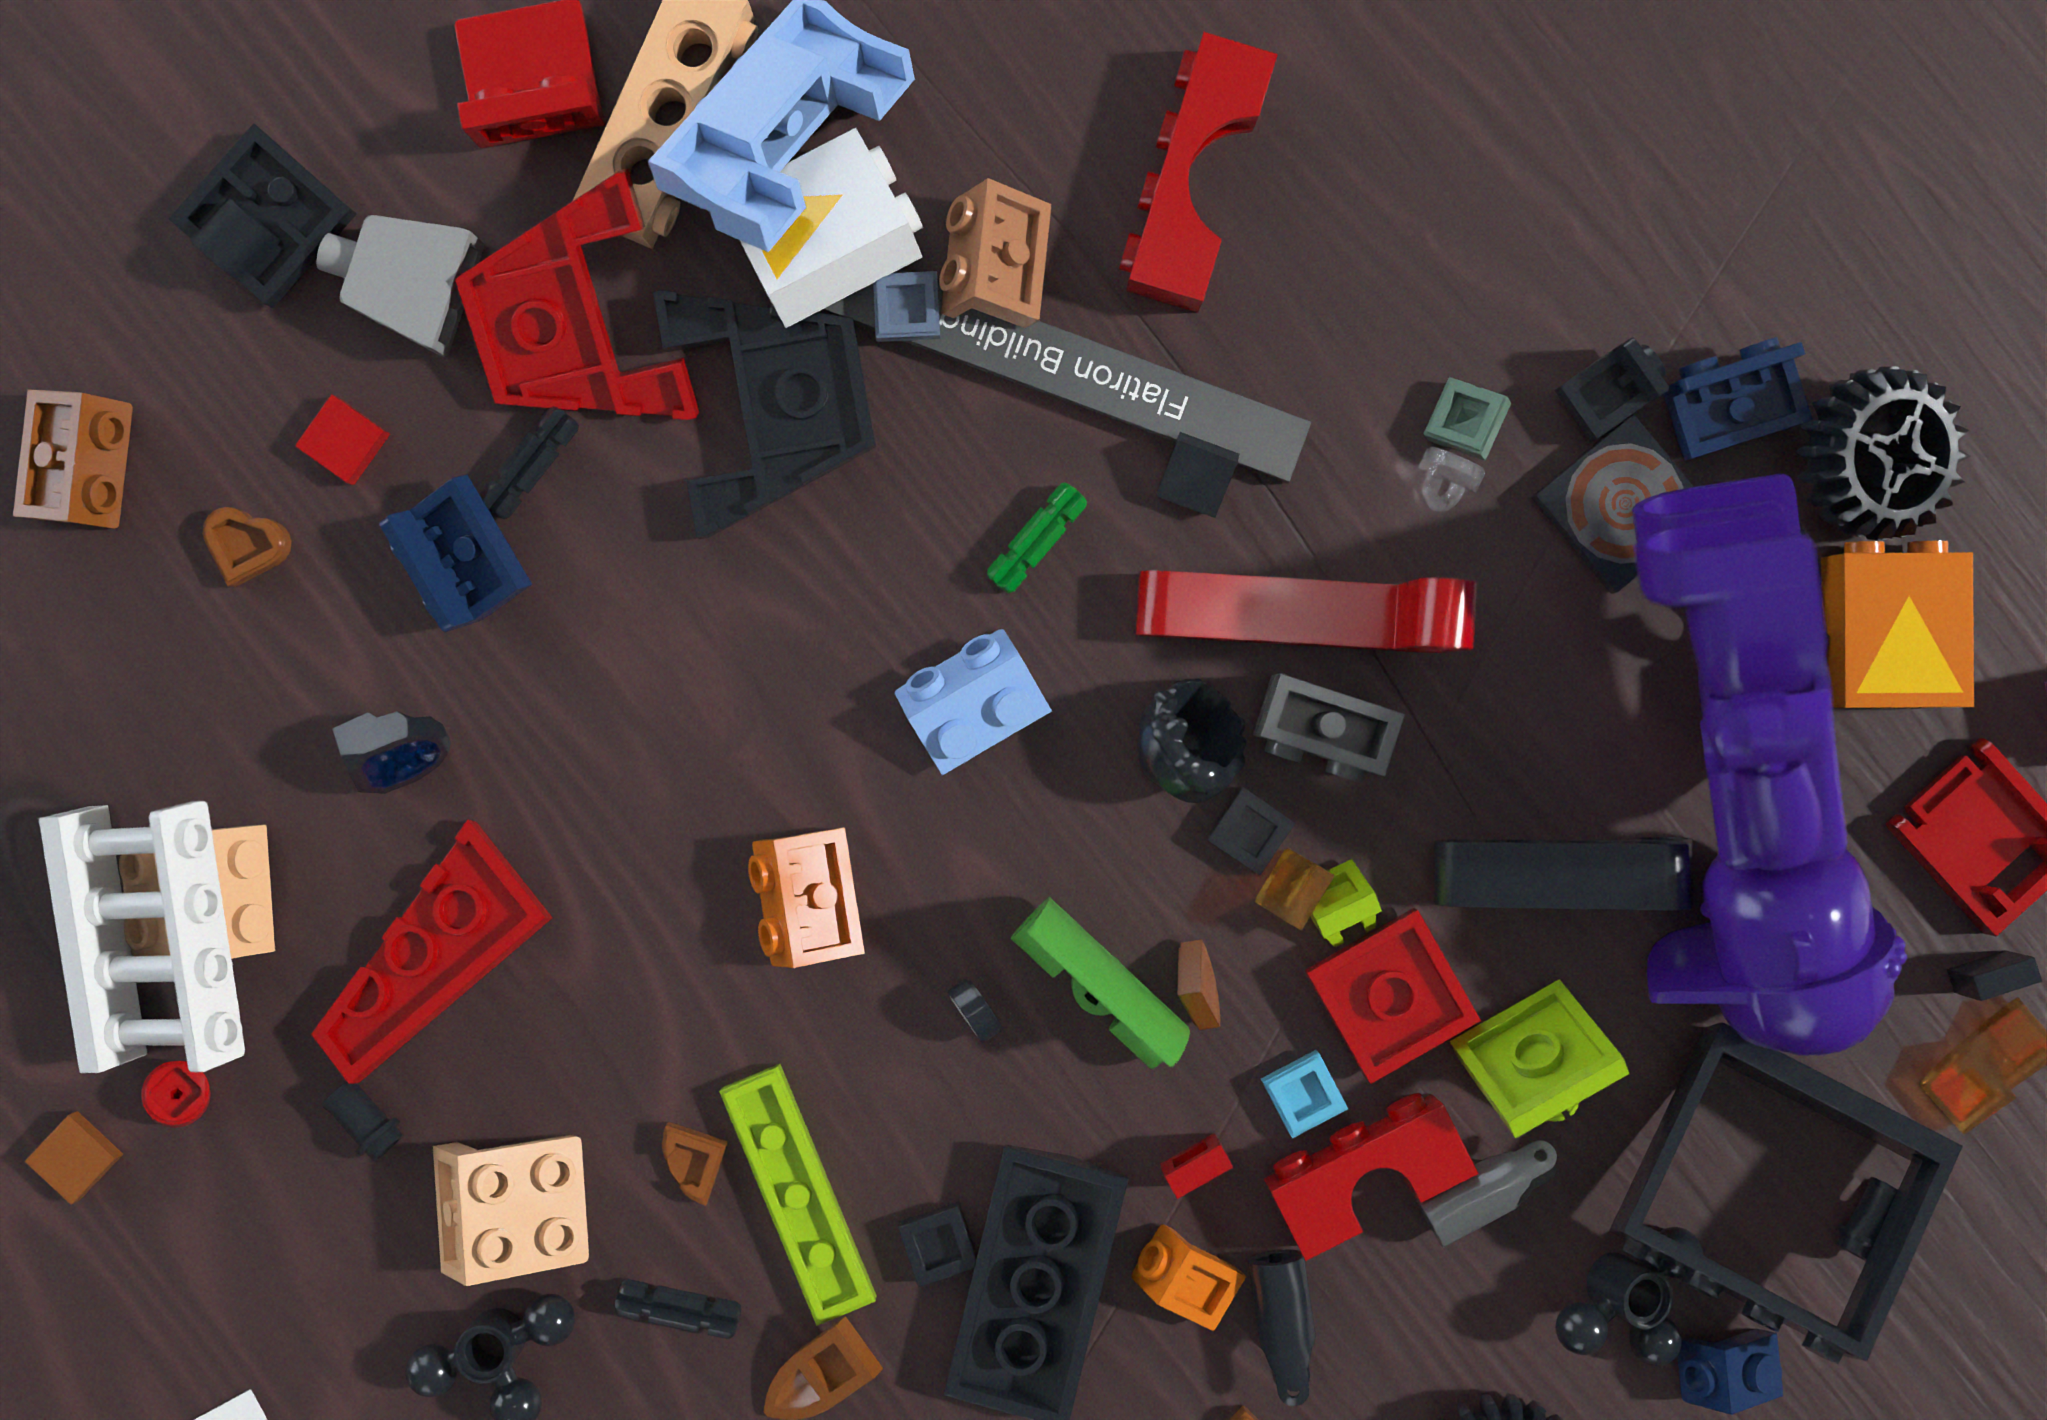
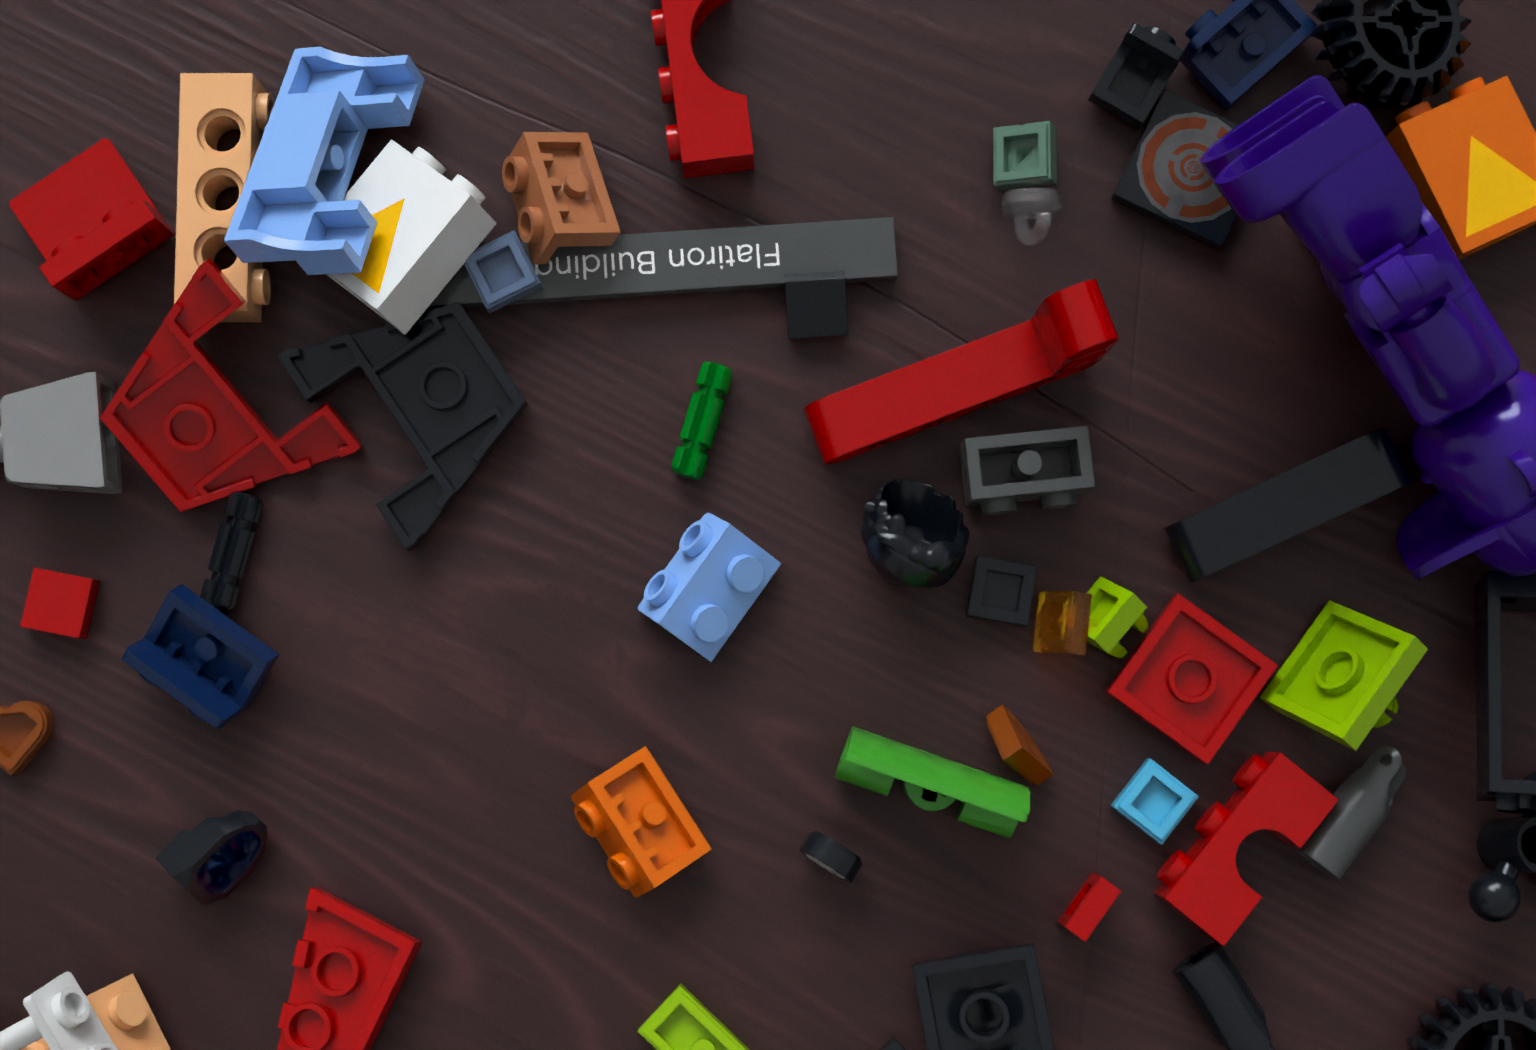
camera: 25 degrees left, 5 degrees down
(1186, 1278) = (1126, 1012): orange bracket -> none

